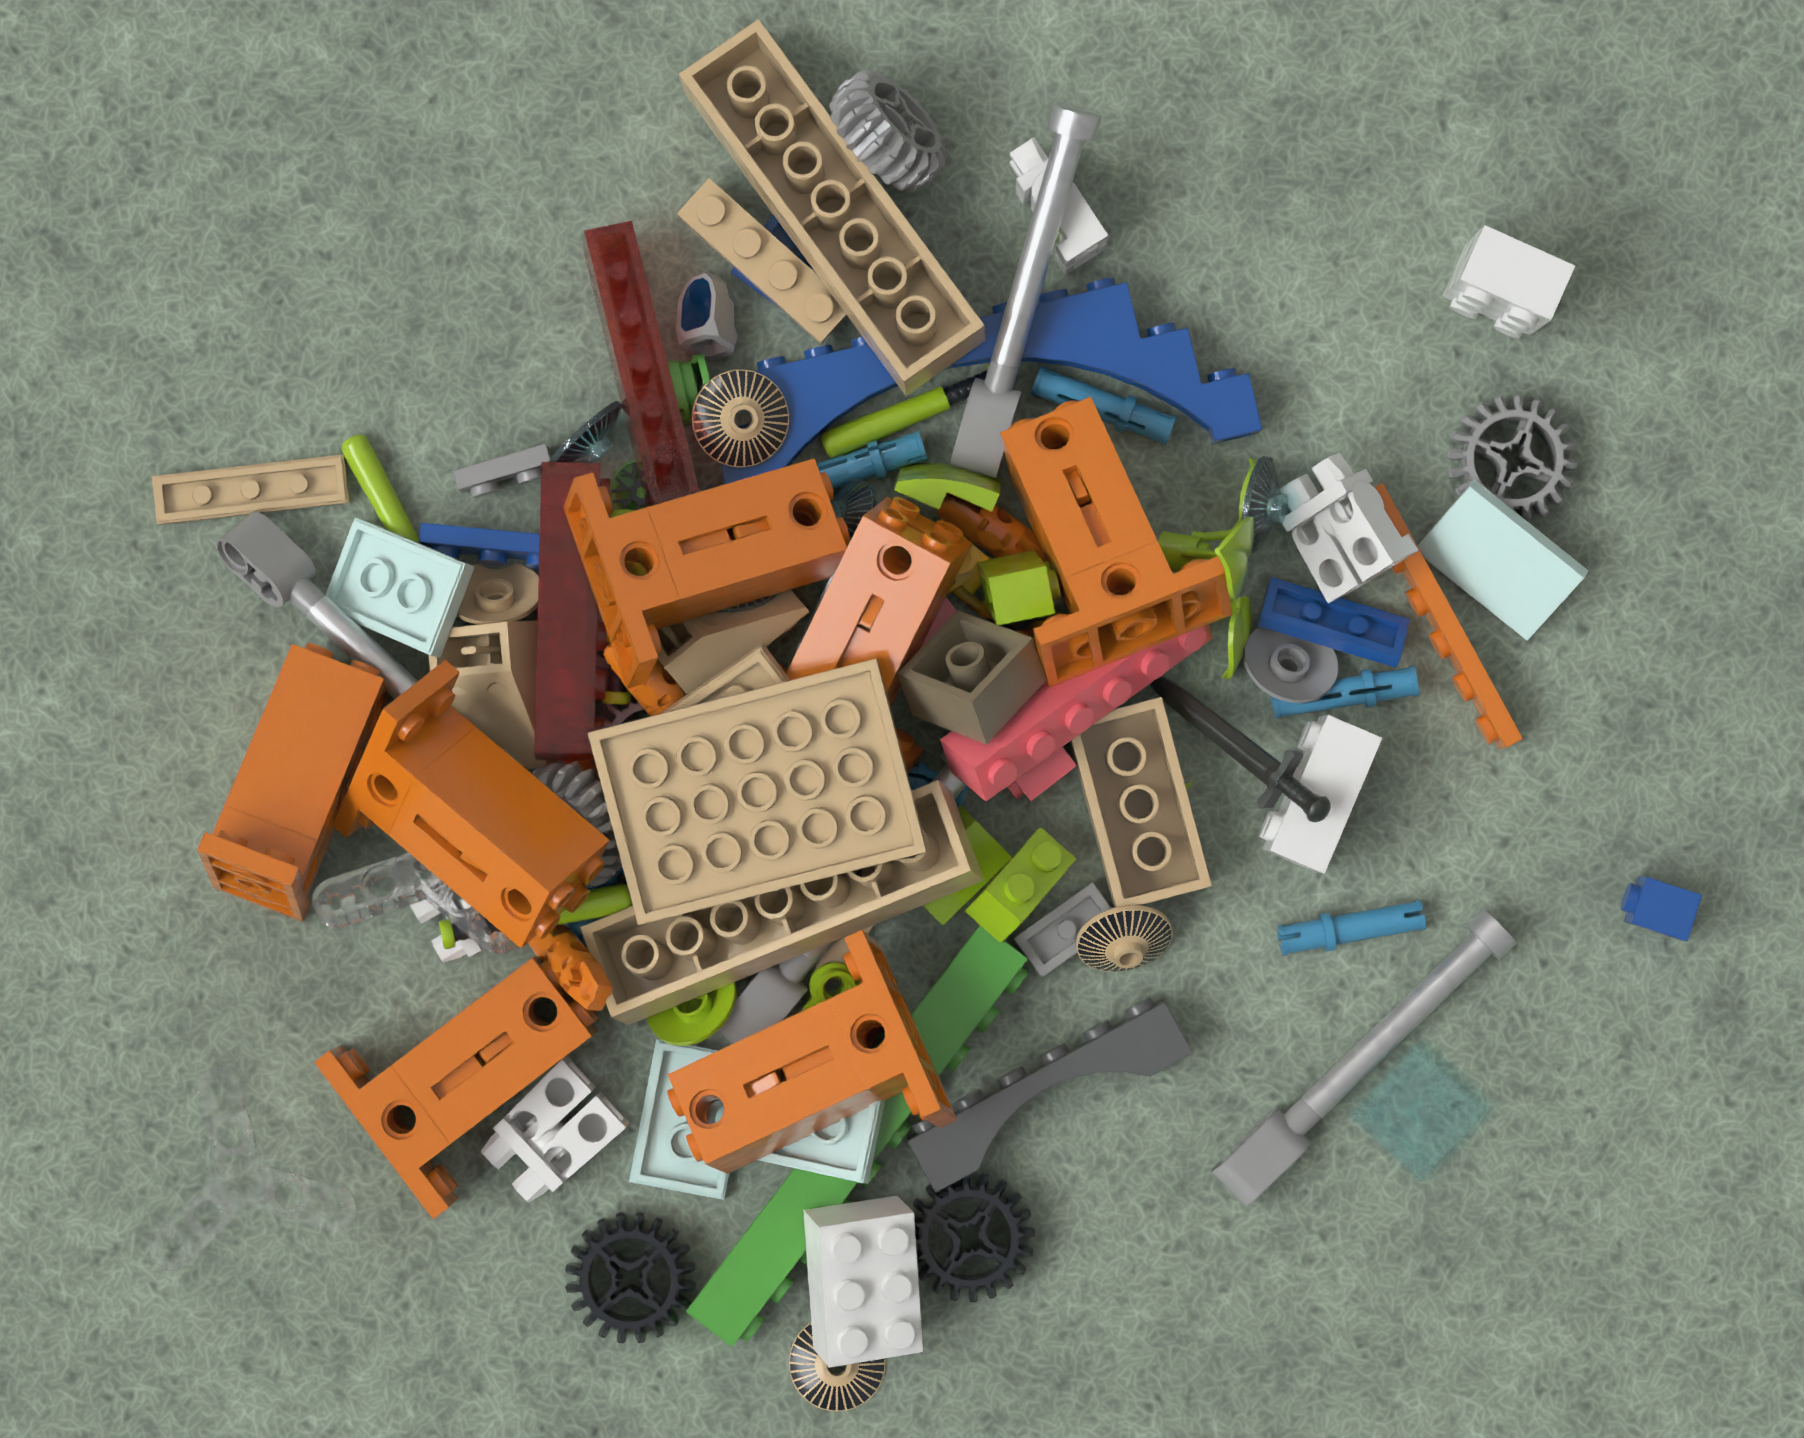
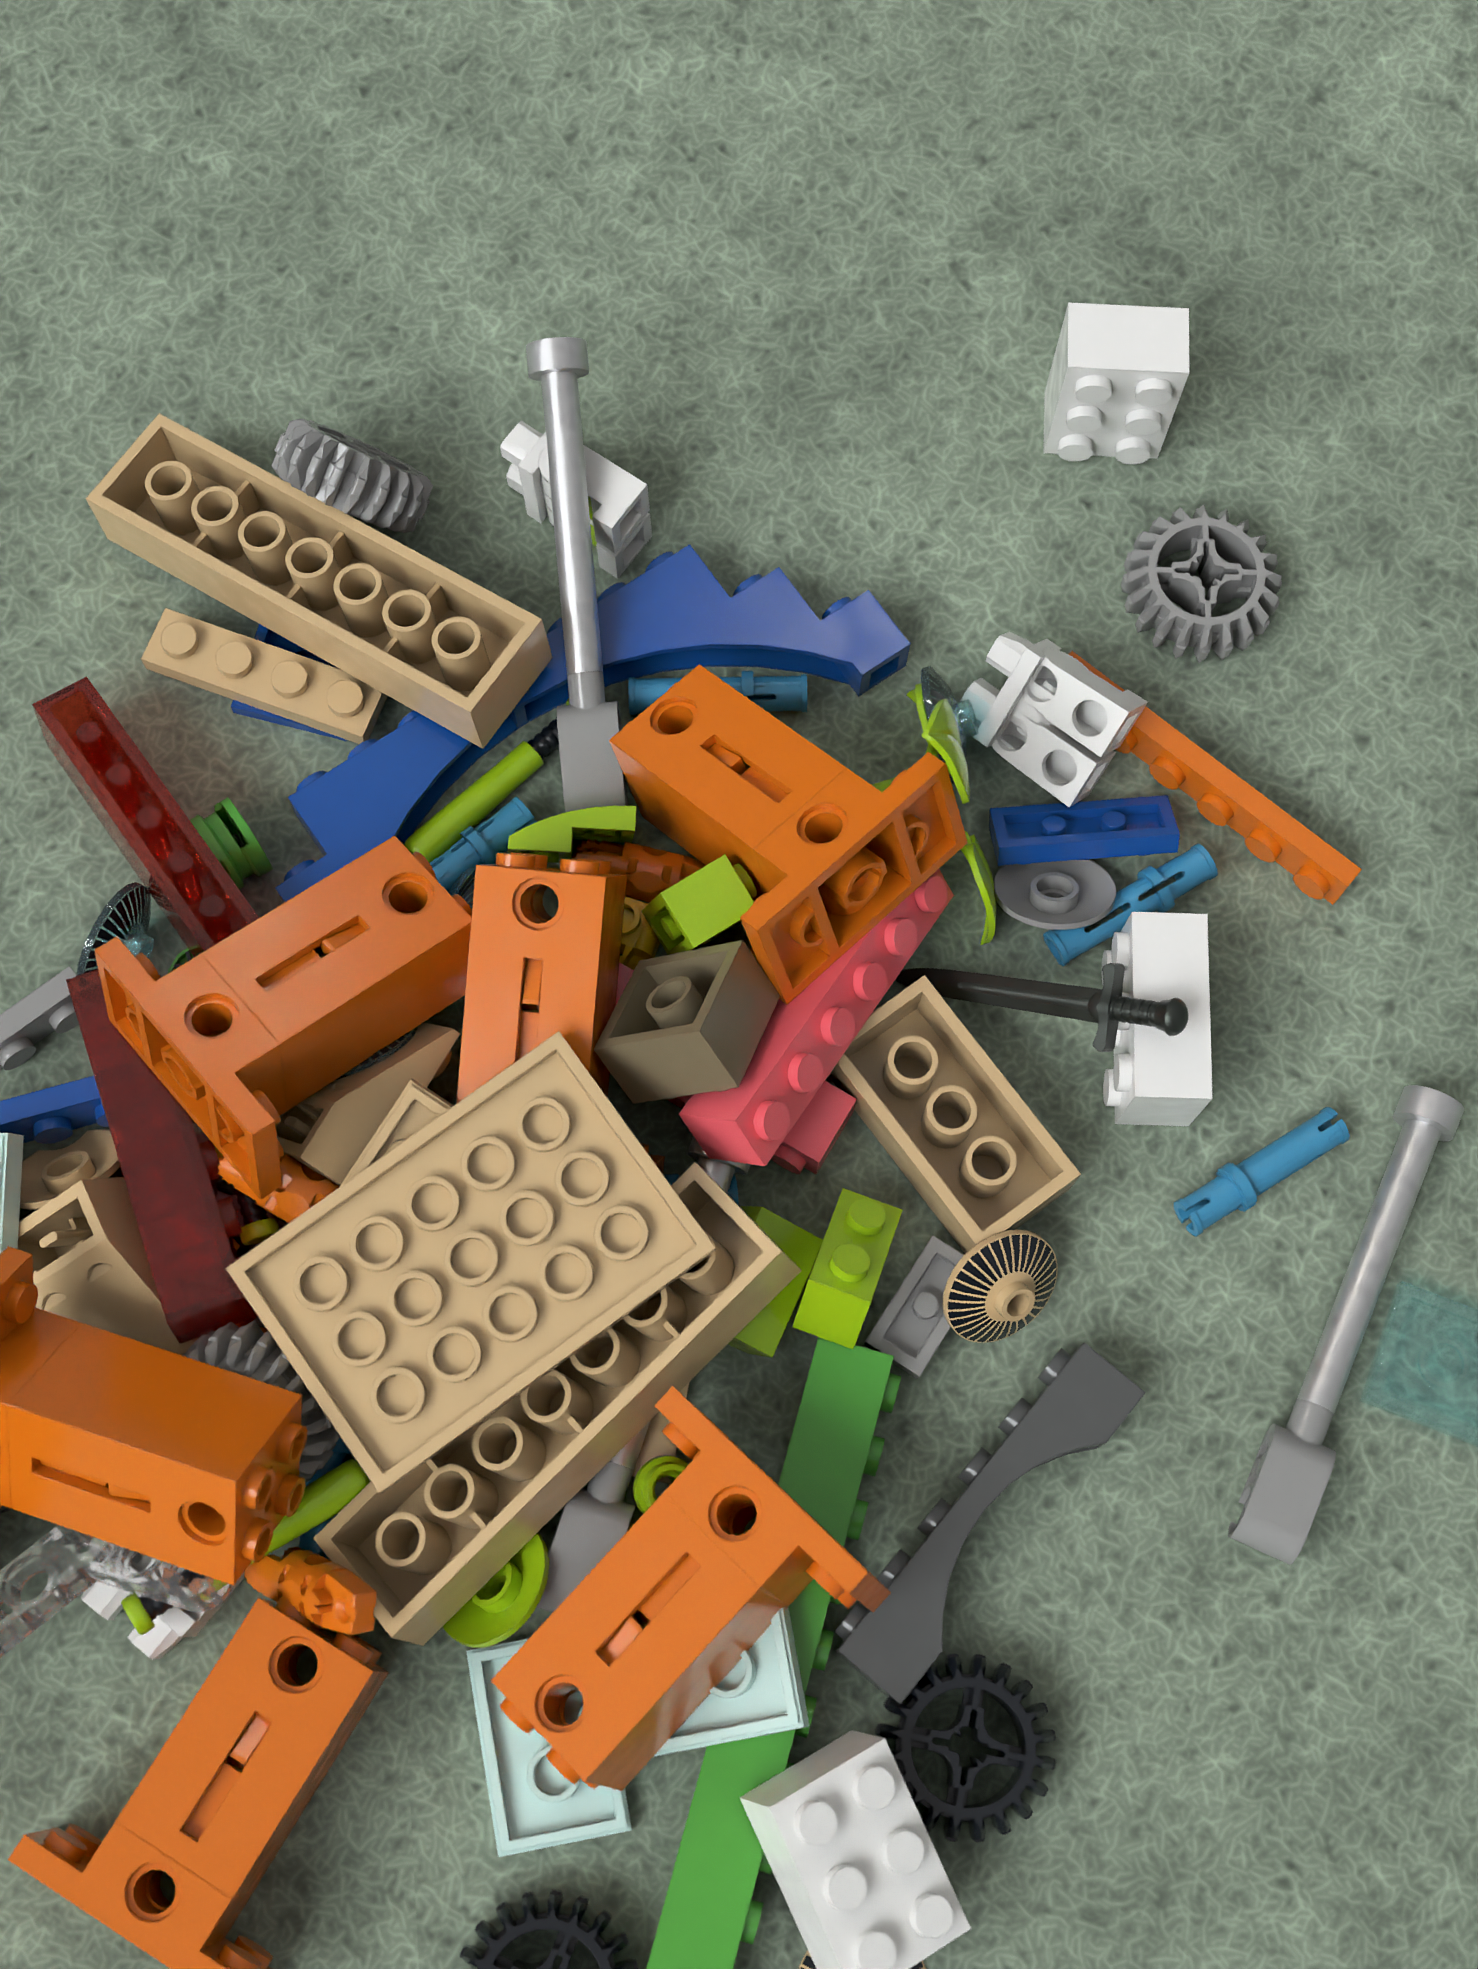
camera: 25 degrees left, 15 degrees down
(546, 1144) = (370, 1849): white hips -> none
(706, 318) = (219, 764): light grey rock -> none
(715, 413) = (269, 864): dish -> none
(1501, 560) = (1244, 687): light aqua tile -> none

